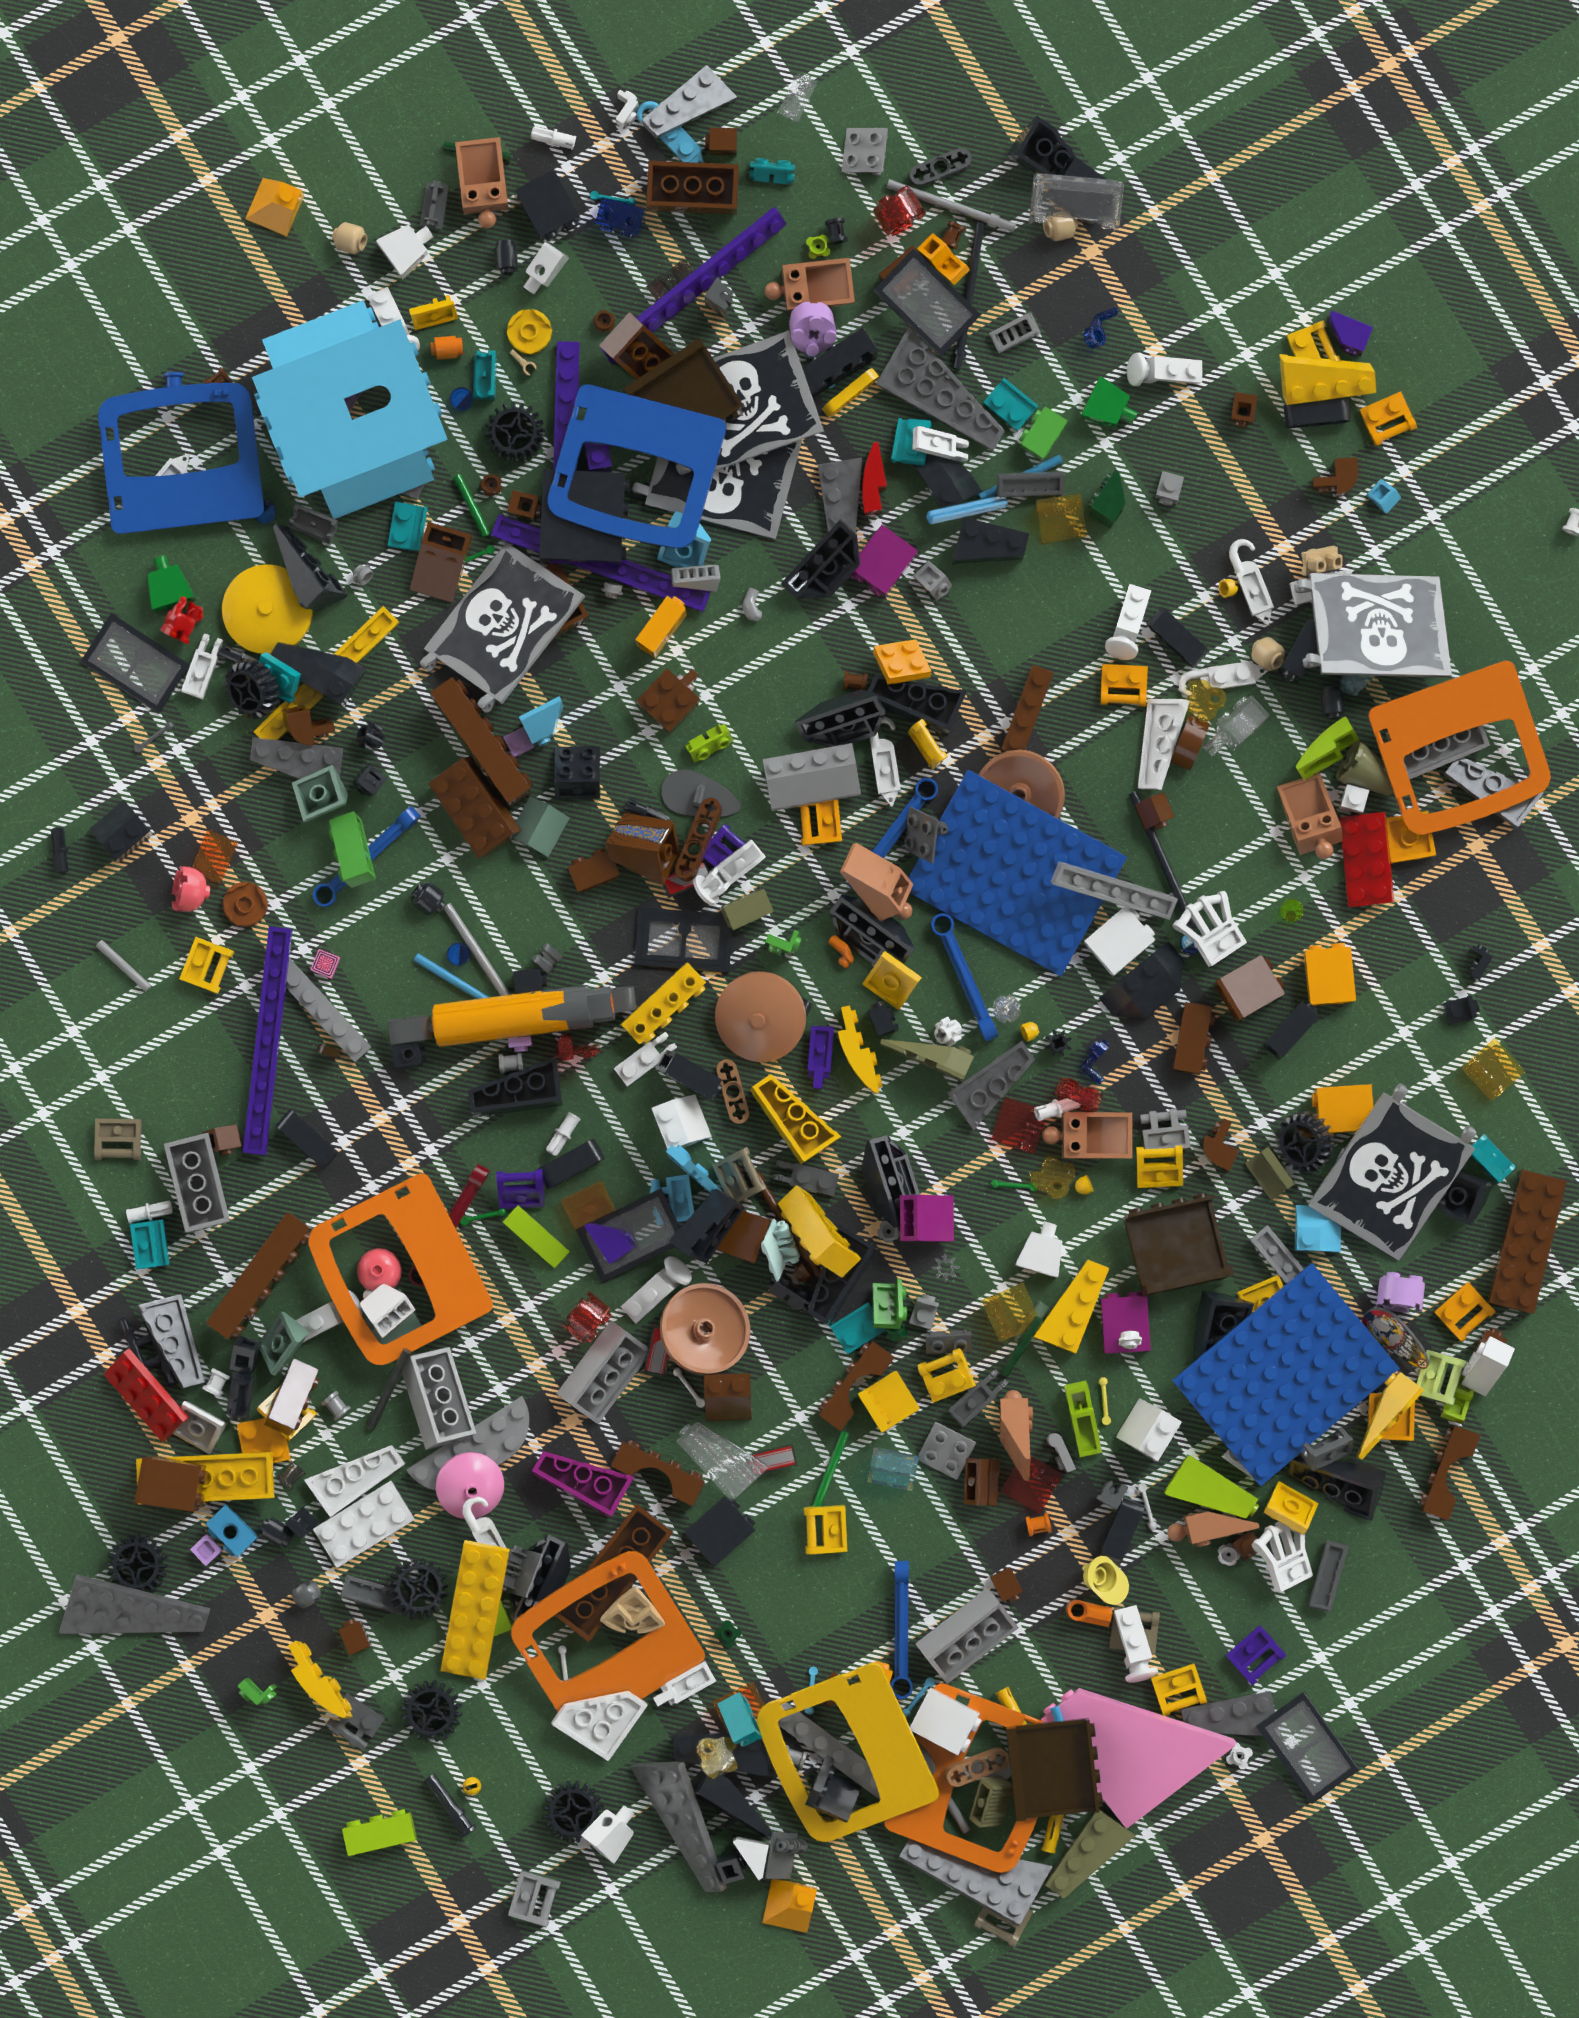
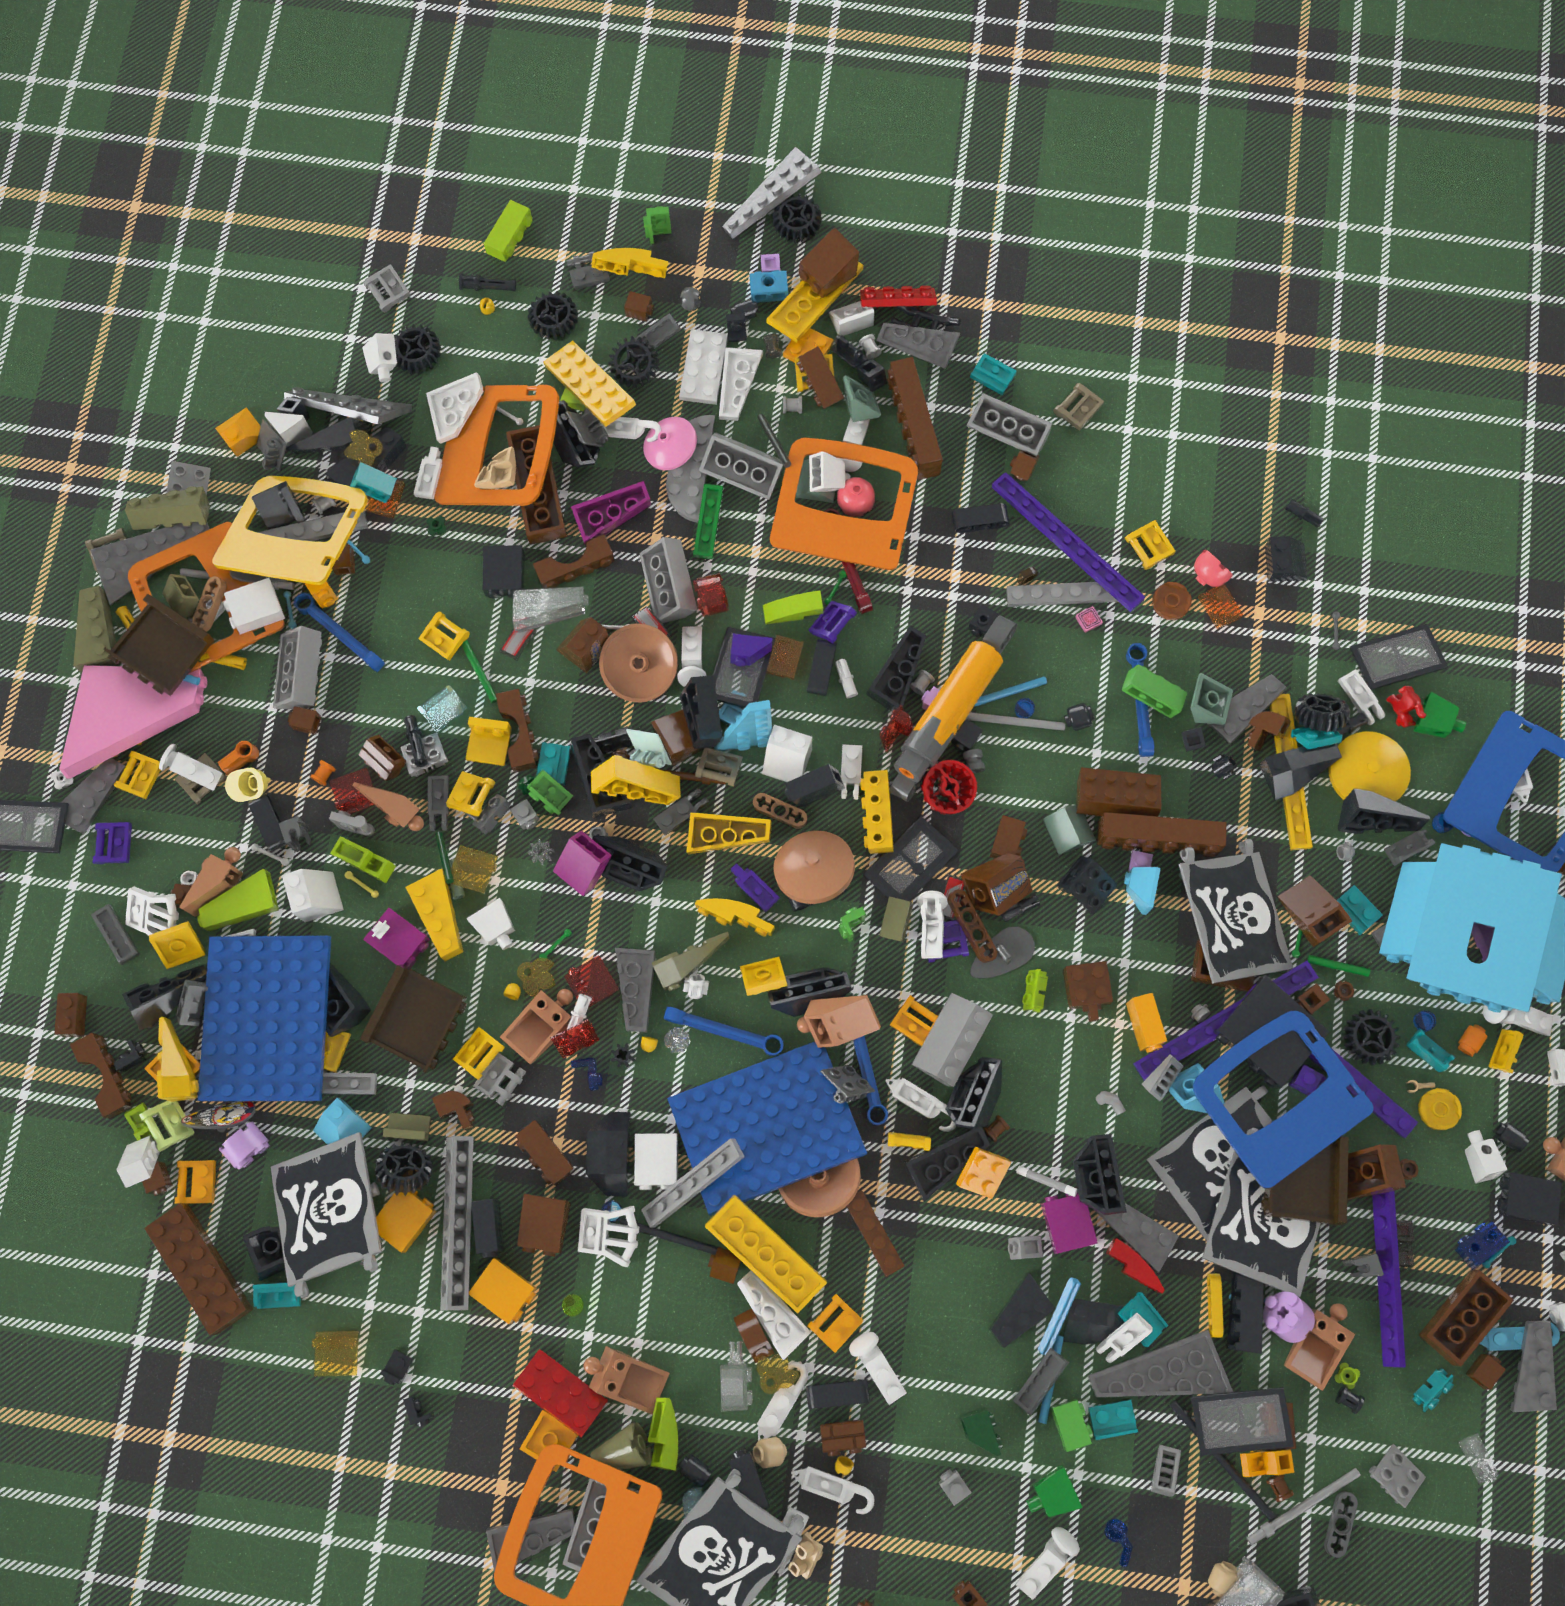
camera: 130 degrees right, 10 degrees down
(123, 965) = (1192, 495): light grey bar -> none
(149, 1211) = (1015, 388): white axle -> none
(516, 1385) = (708, 521): none -> green plate
(590, 941) = (964, 778): none -> red gear
(839, 945) = (814, 962): orange arm -> none
(864, 606) = (1047, 1181): none -> light grey bar
(880, 1903) = (187, 475): none -> light grey hinge
(882, 1019) = (742, 948): black brick -> none
(899, 211) = (1330, 1460): clear red brick -> none
(920, 1890) = (169, 509): none -> olive wedge
(938, 1471) = (414, 736): none -> black pin
(1061, 518) = (996, 1383): clear yellow hinge -> none
(1118, 785) = (766, 1253): none -> yellow plate
(1206, 606) = (843, 1436): none -> reddish brown brick
(1309, 1060) = (457, 1223): none -> light grey brick
(1354, 799) = (610, 1422): white brick -> none
(1418, 1461) = (130, 1059): none -> black bracket
(1425, 1546) = (70, 1015): none -> reddish brown brick

